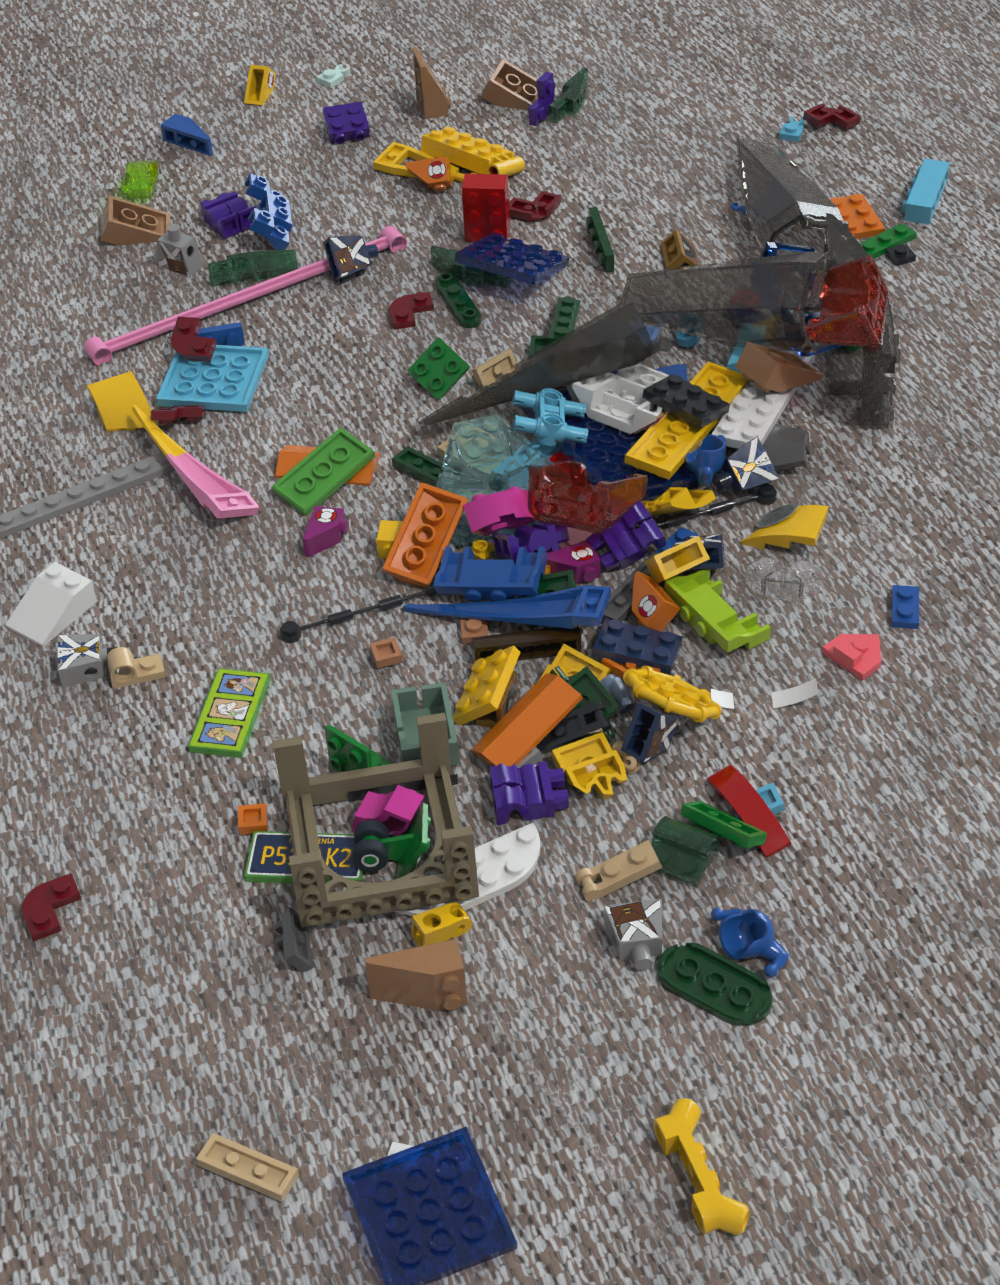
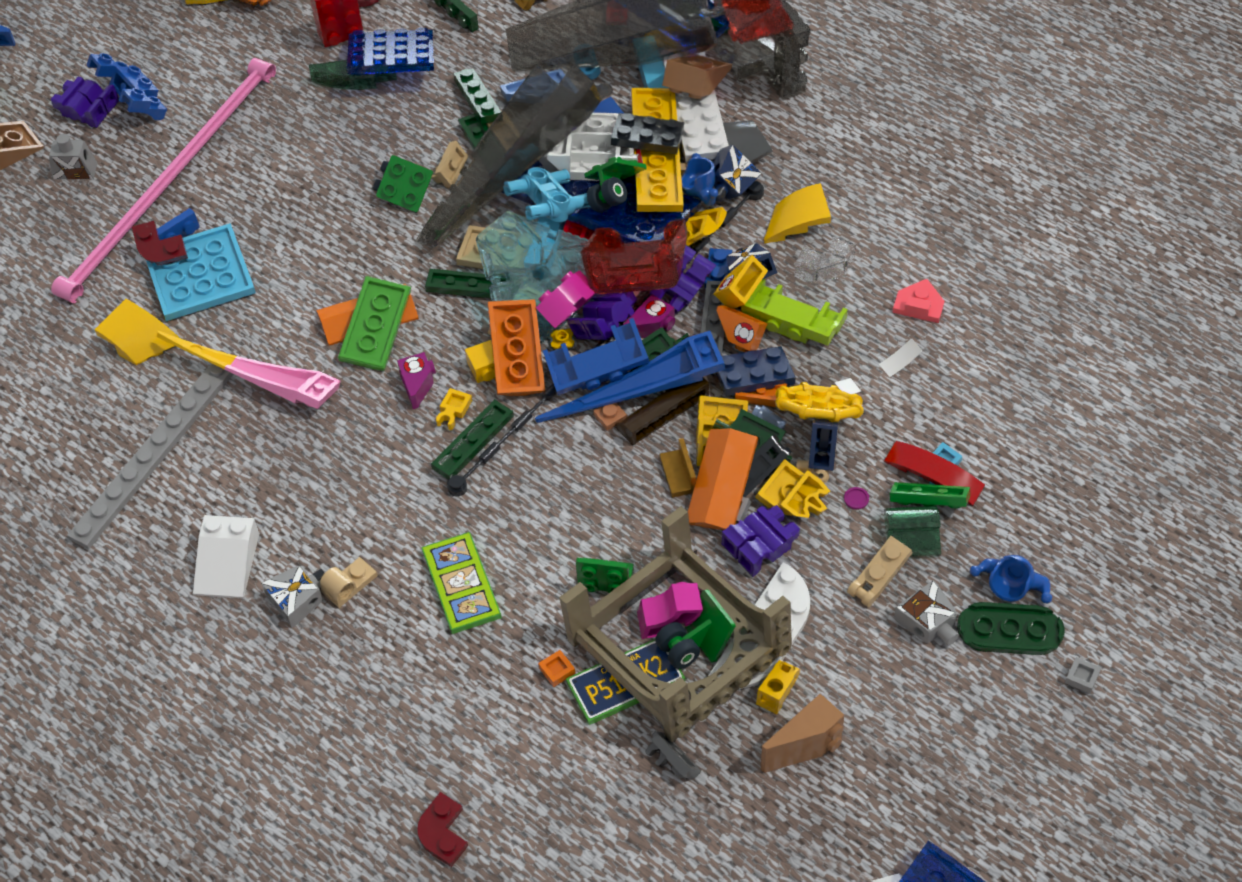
camera: 30 degrees left, 10 degrees up
(166, 415) = (195, 321): dark red plate -> none
(252, 265) = (152, 147): clear green slope -> none
(333, 599) = (472, 439): none -> dark green plate
(339, 565) = (453, 405): none -> yellow plate
(348, 255) = (238, 104): torso -> none
(386, 652) = (554, 468): nougat plate -> none
(402, 309) = (322, 132): dark red plate -> none
(405, 711) = (637, 519): sand green piece -> none
(458, 300) = (364, 109): dark green plate -> none
(486, 685) = (663, 461): yellow plate -> none
(614, 419) = (611, 188): none -> plate
(652, 800) = (856, 498): none -> magenta piece
(708, 1206) = (1137, 806): yellow plate -> none
(753, 1059) = (1083, 675): none -> light grey plate
(776, 515) = (779, 207): light grey sticker -> none
(905, 607) = (928, 245): blue plate -> none

